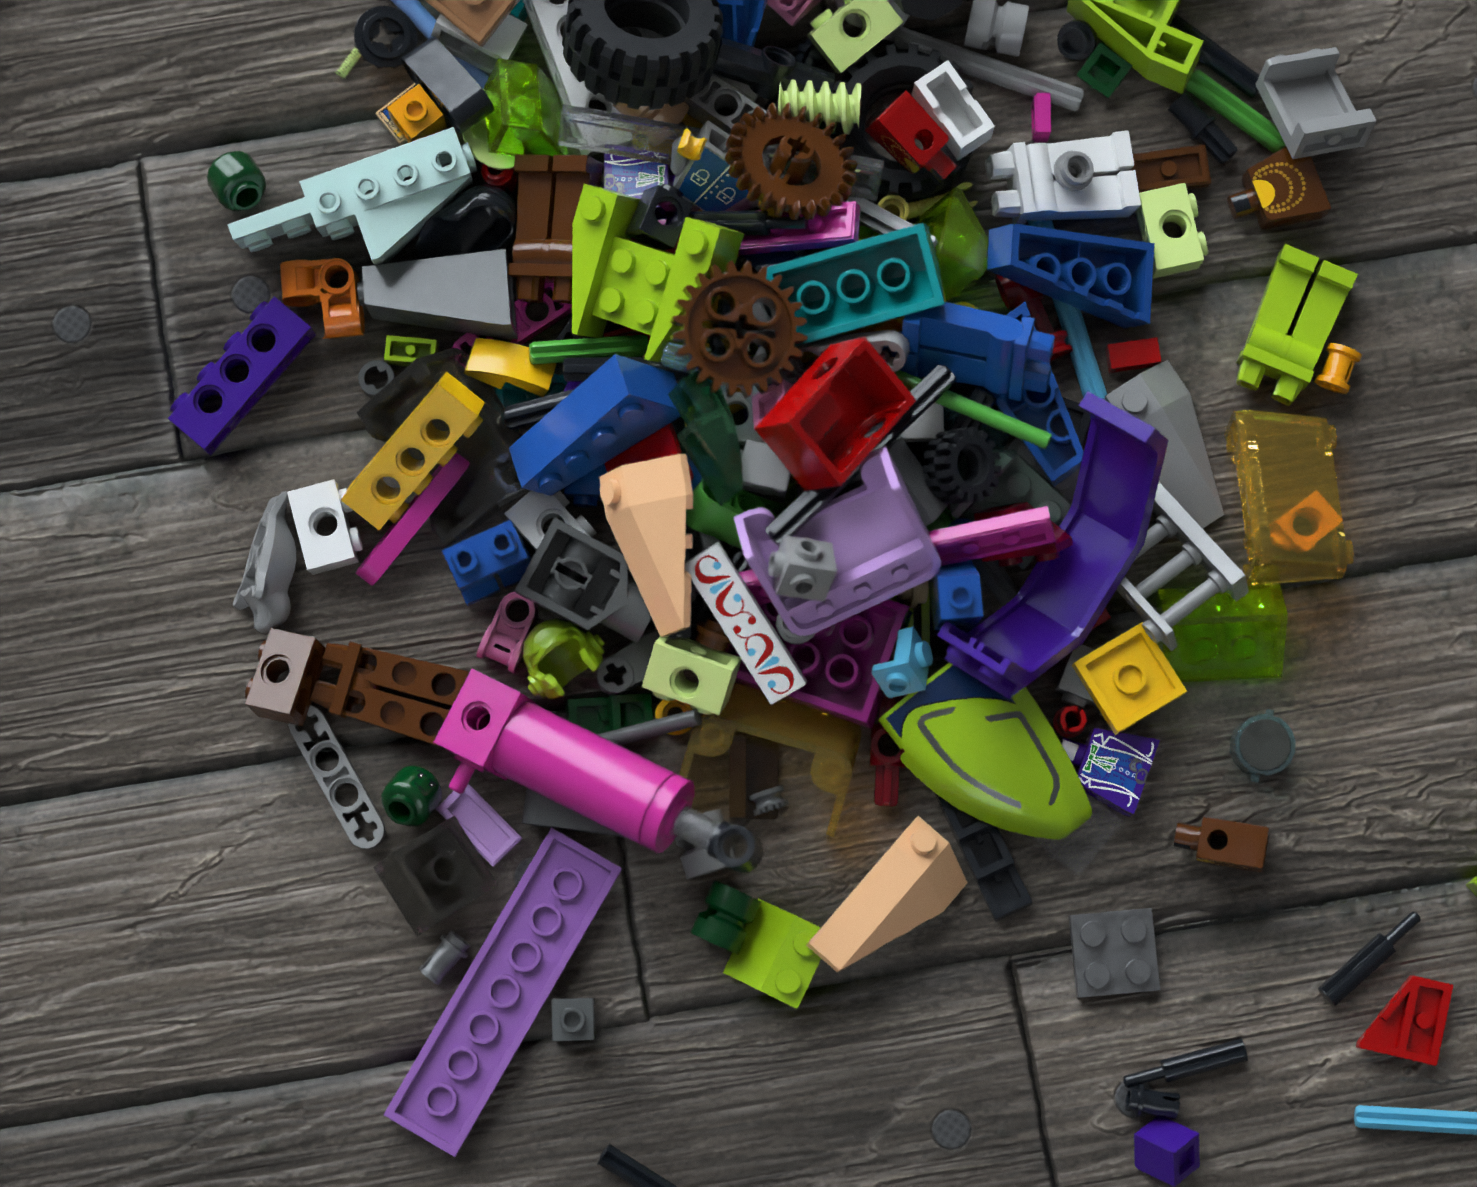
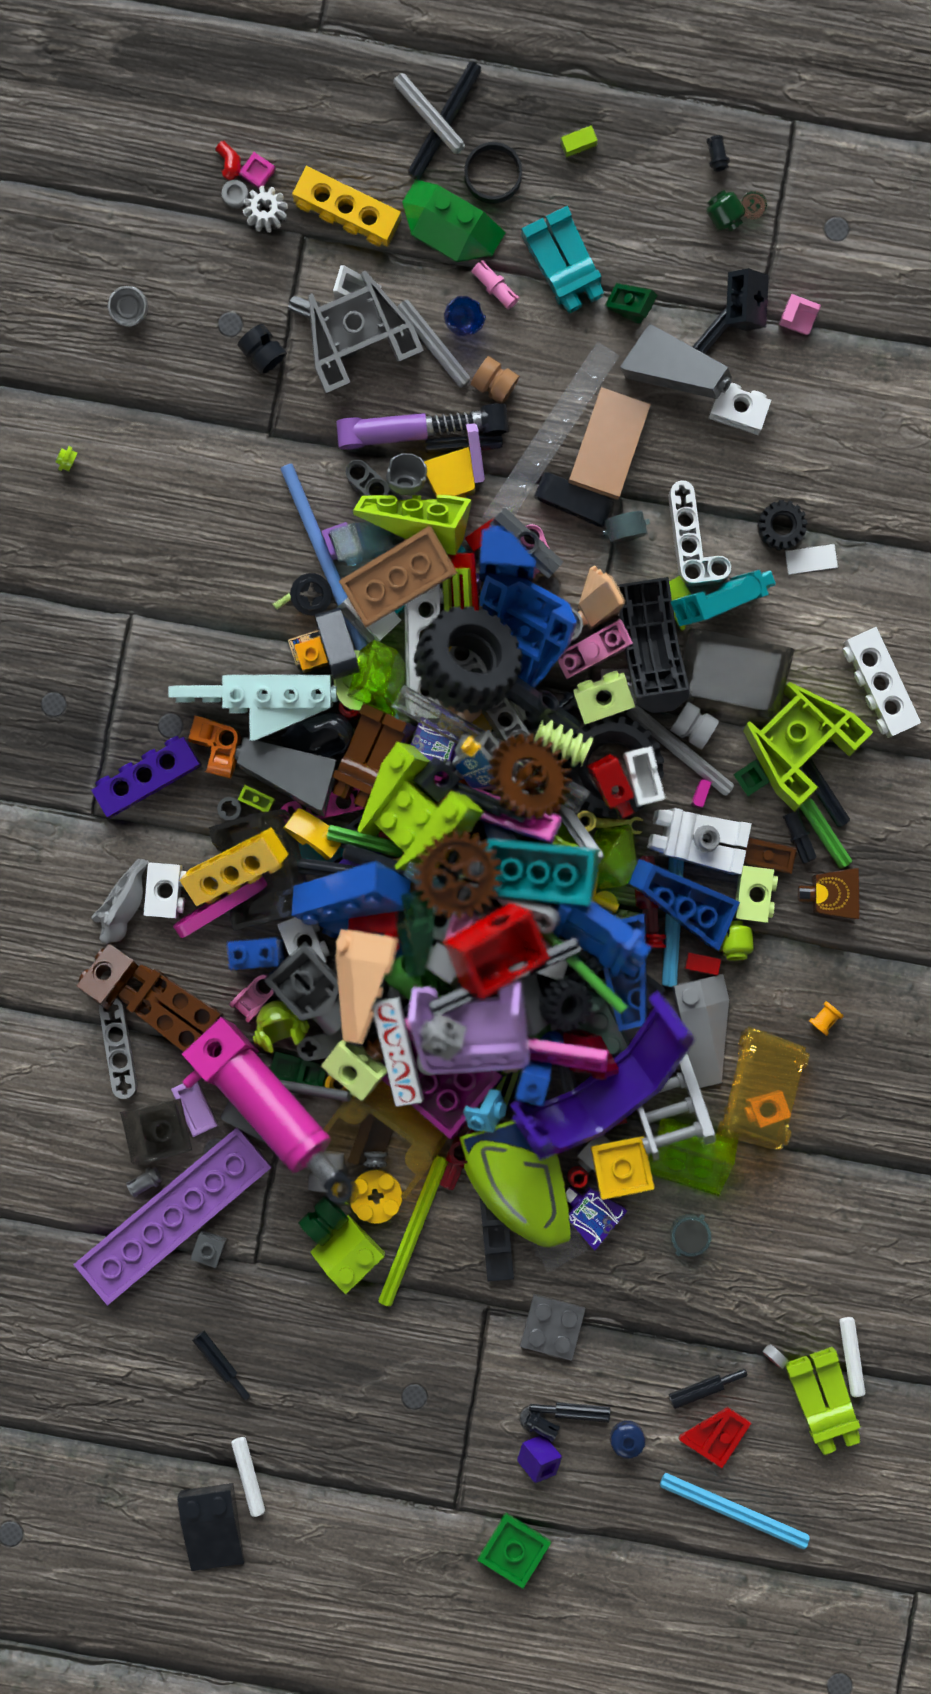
camera: 20 degrees right, 5 degrees up
(236, 181) = (186, 653): dark green head -> none
(411, 796) = (158, 1077): dark green head -> none
(811, 862) = (387, 1206): none -> yellow plate
(861, 863) = (413, 1231): none -> lime axle
(900, 892) = (431, 1246): light nougat wedge -> none
(1076, 40) = (741, 752): black plate -> none
(1172, 306) = (737, 942): none -> lime head
(1244, 849) = (655, 1293): reddish brown torso -> none
(1268, 345) = (789, 988): lime hips -> none
(1284, 1073) = (627, 1439): none -> dark blue head
(1312, 104) = (872, 848): light grey panel -> none
(1451, 876) = (775, 1356): none -> light grey tile

